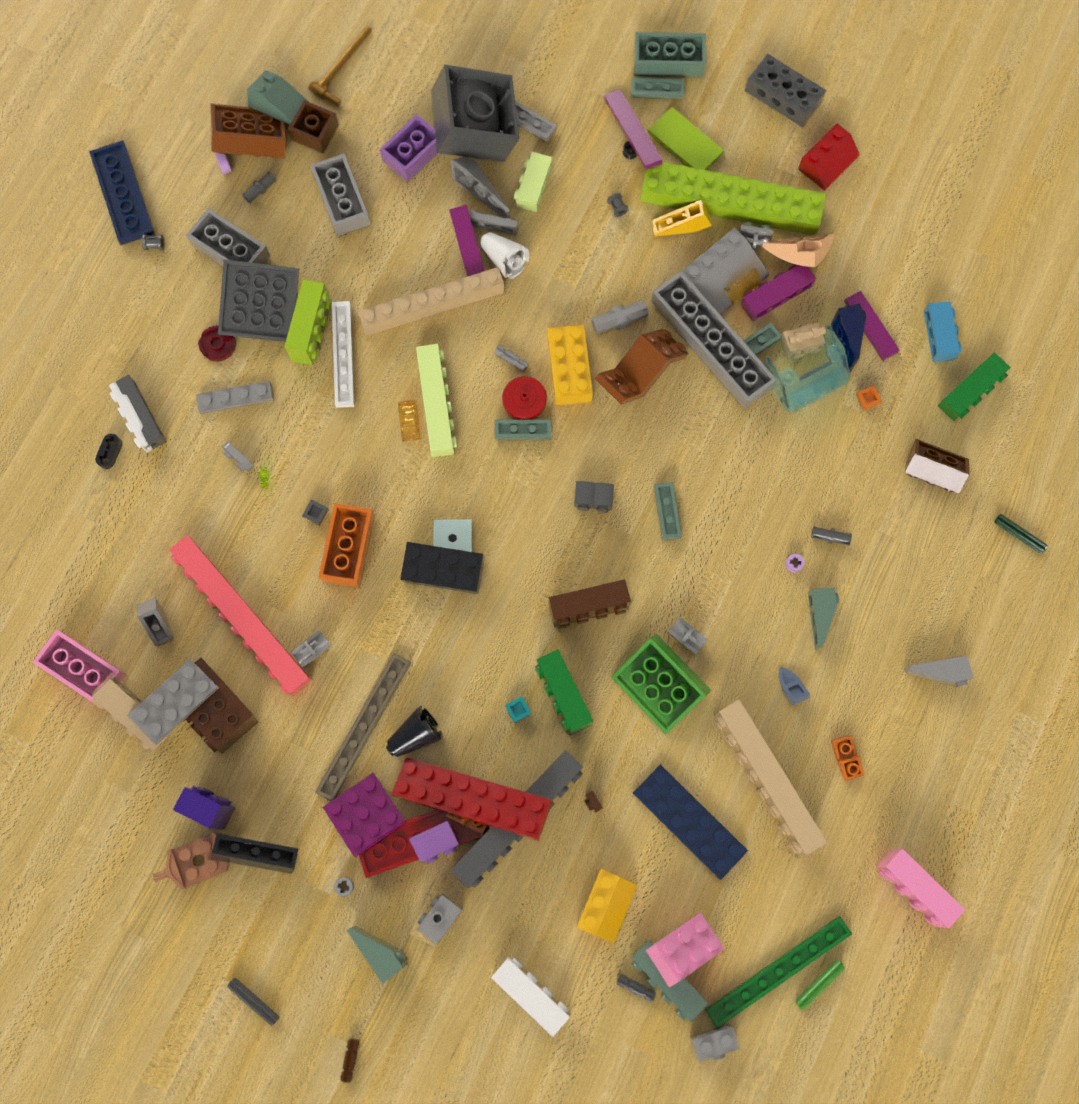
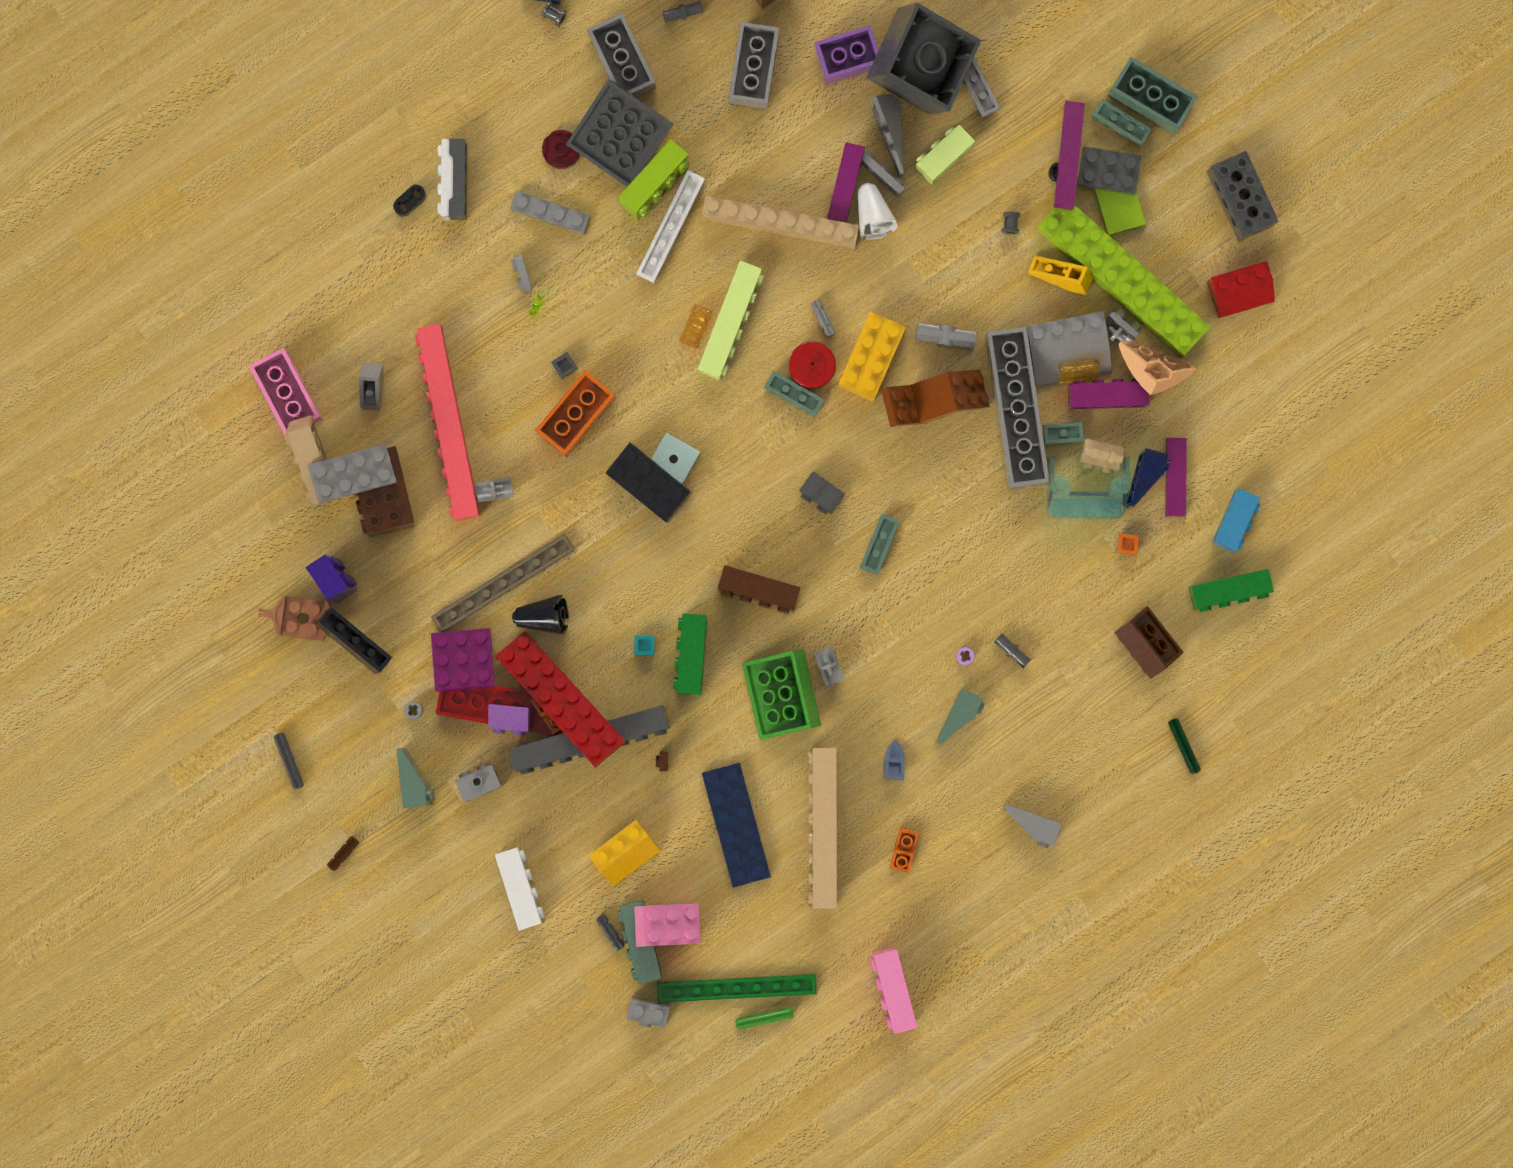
camera: 30 degrees right, 10 degrees up
(671, 125) = (1109, 170): none -> dark grey plate

